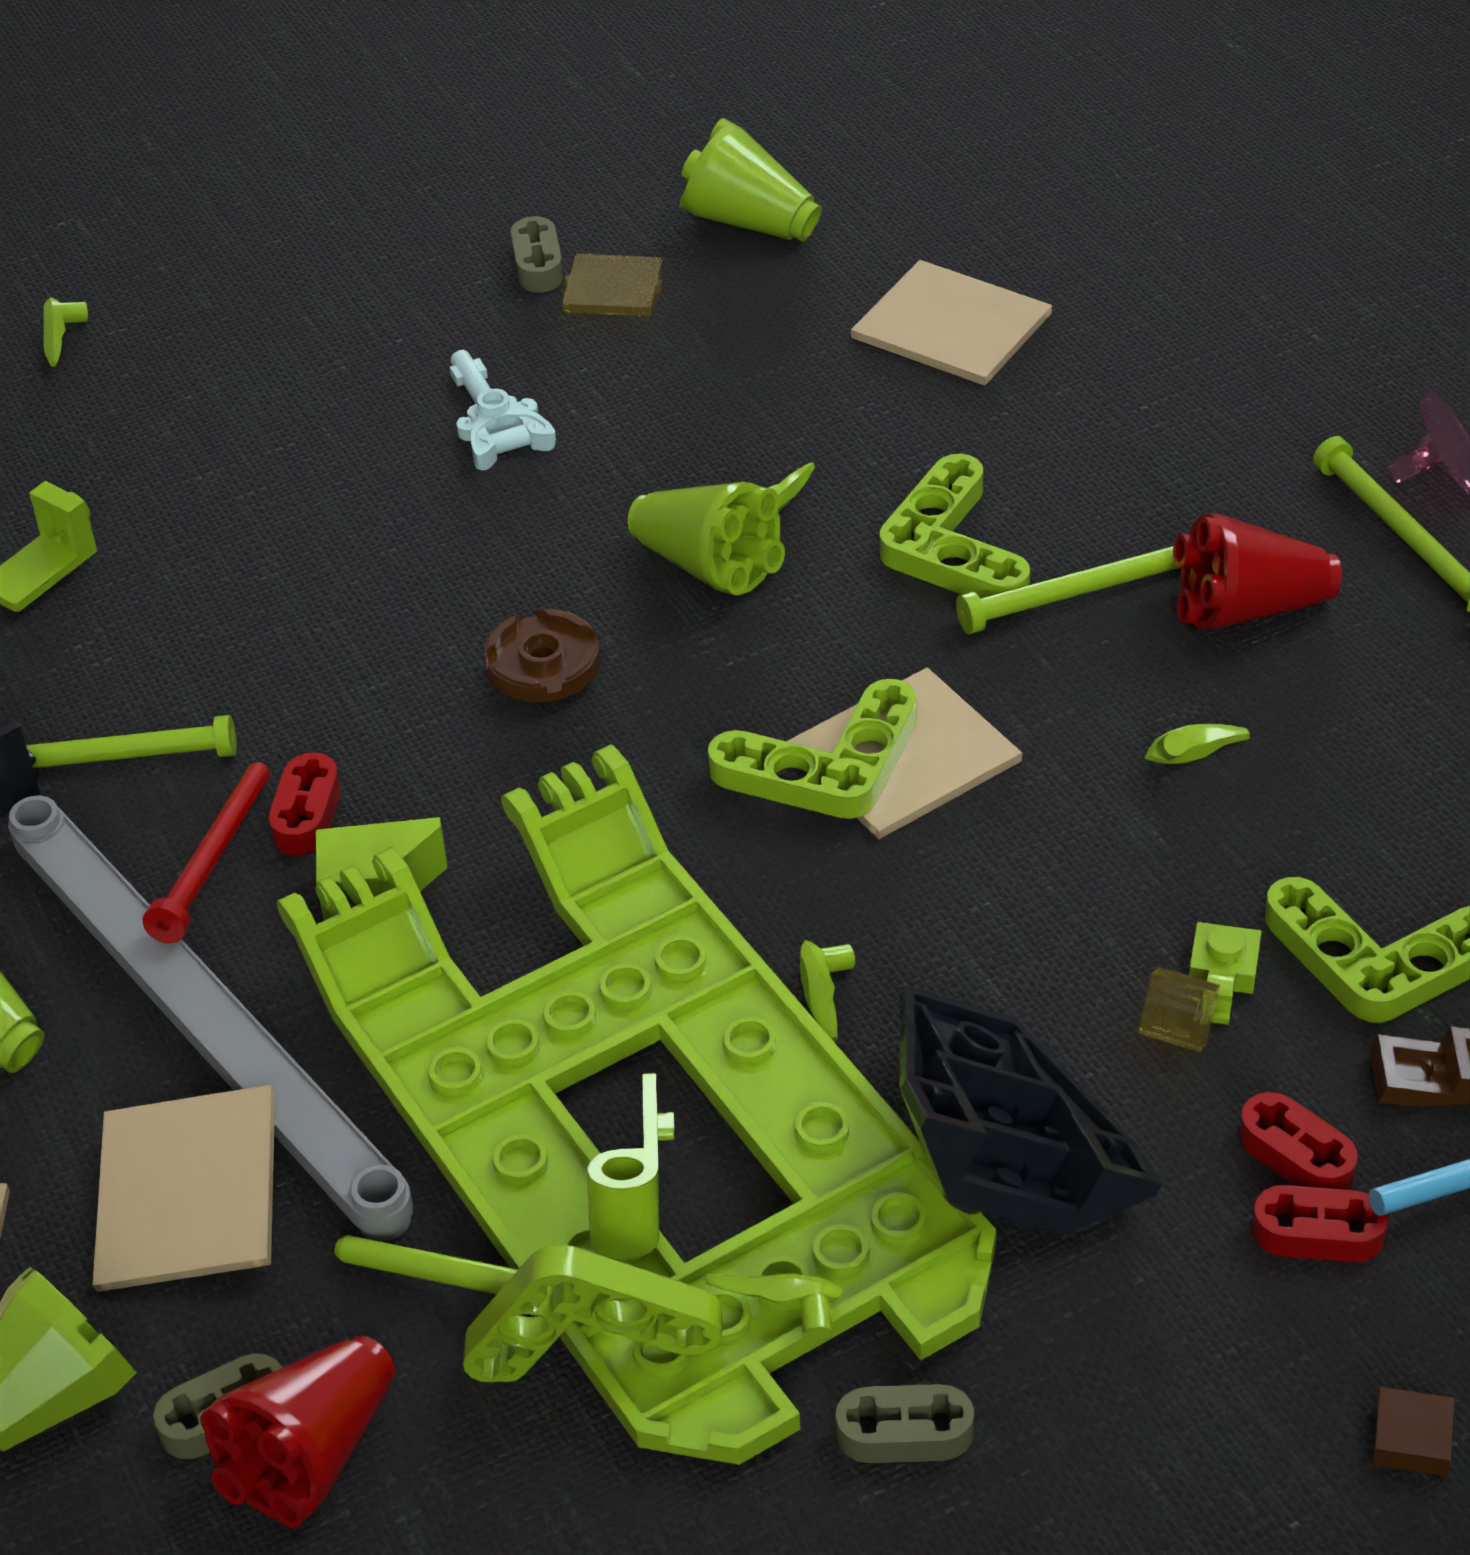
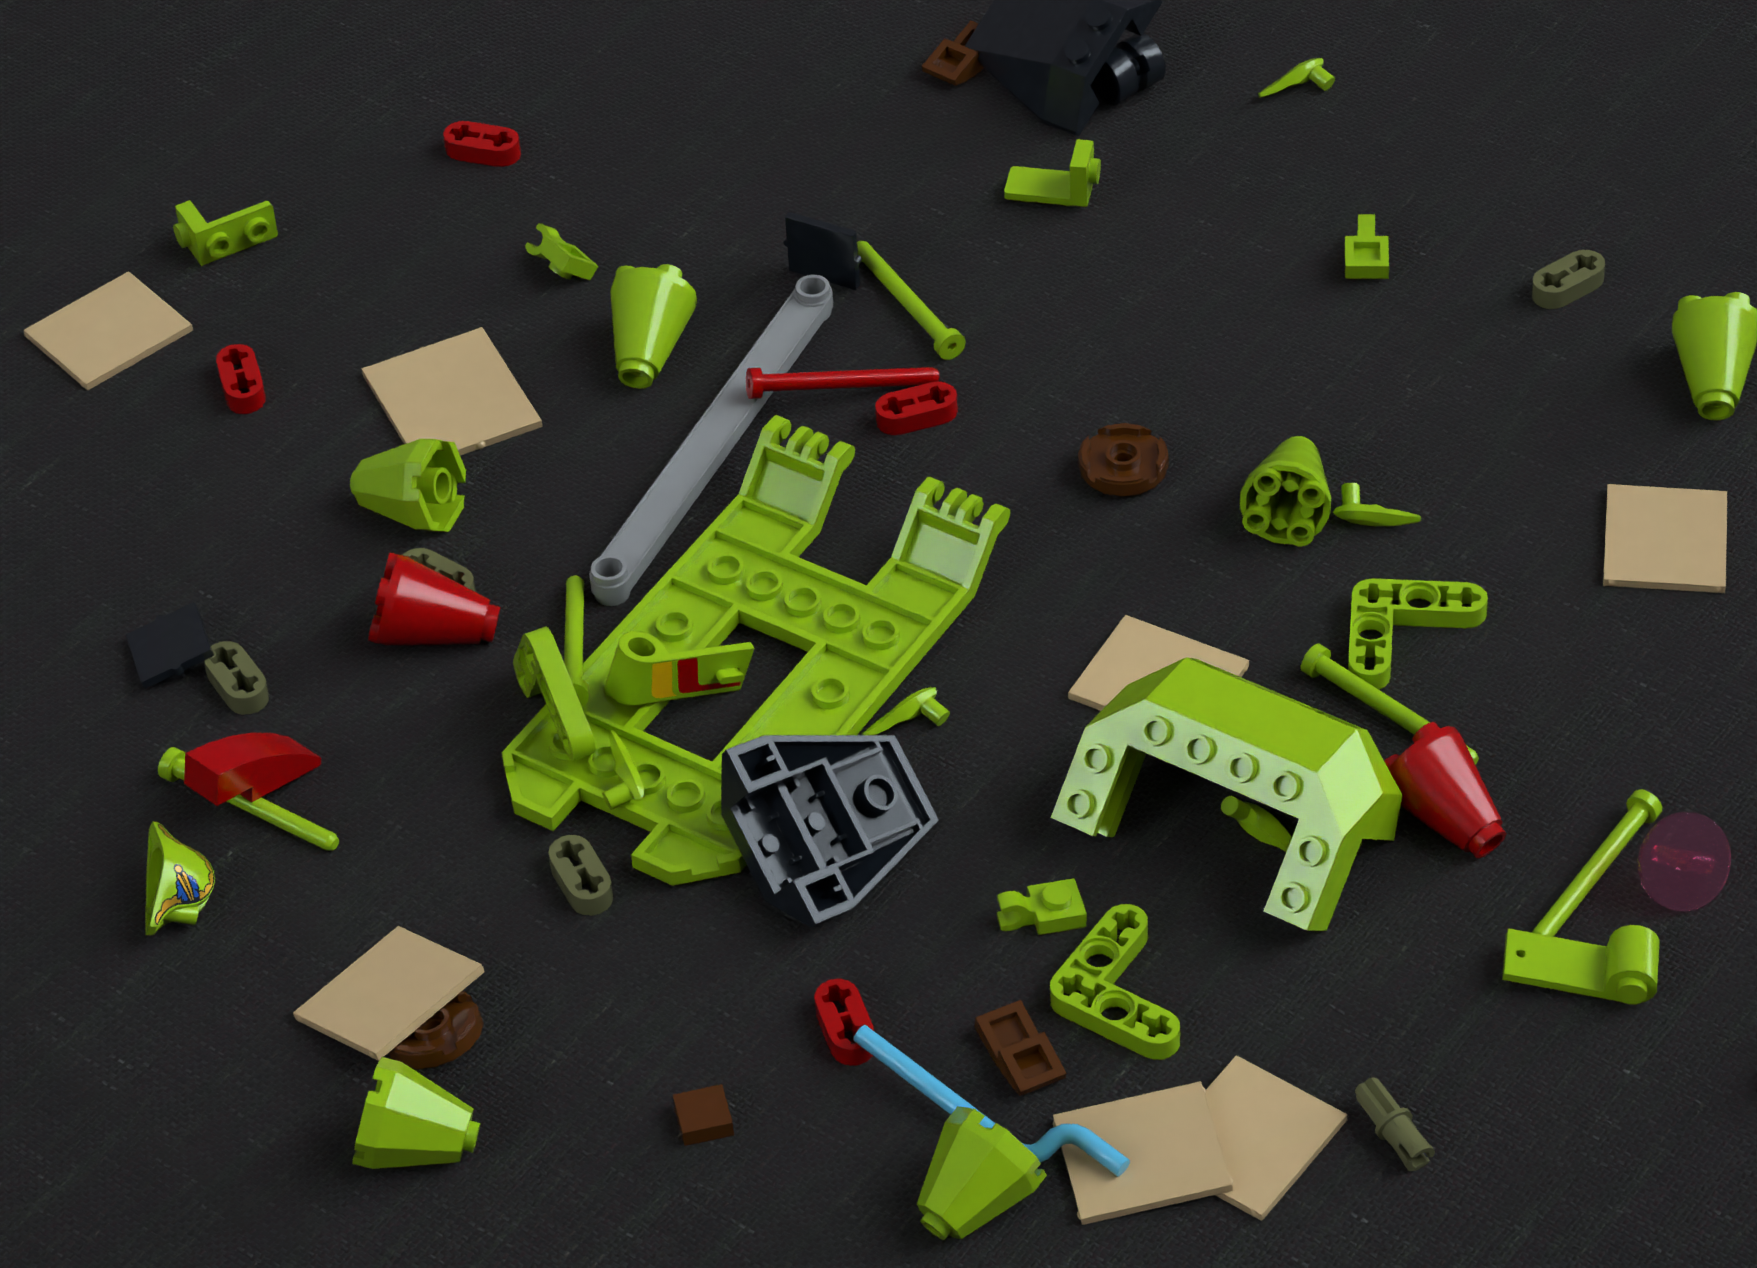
camera: 65 degrees right, 0 degrees up
(185, 1188) = (574, 492): tan piece -> none
(377, 368) = (1366, 254): none -> lime plate
(416, 841) = (878, 464): lime slope -> none
(496, 420) = (1364, 333): light aqua piece -> none
(613, 284) = (1569, 336): clear yellow piece -> none
(739, 757) = (1109, 648): lime beam -> none
(1147, 666) = (1255, 746): none -> lime wedge
(1179, 1009) = (981, 890): clear yellow tile -> none
(1297, 1144) = (897, 989): red beam -> none

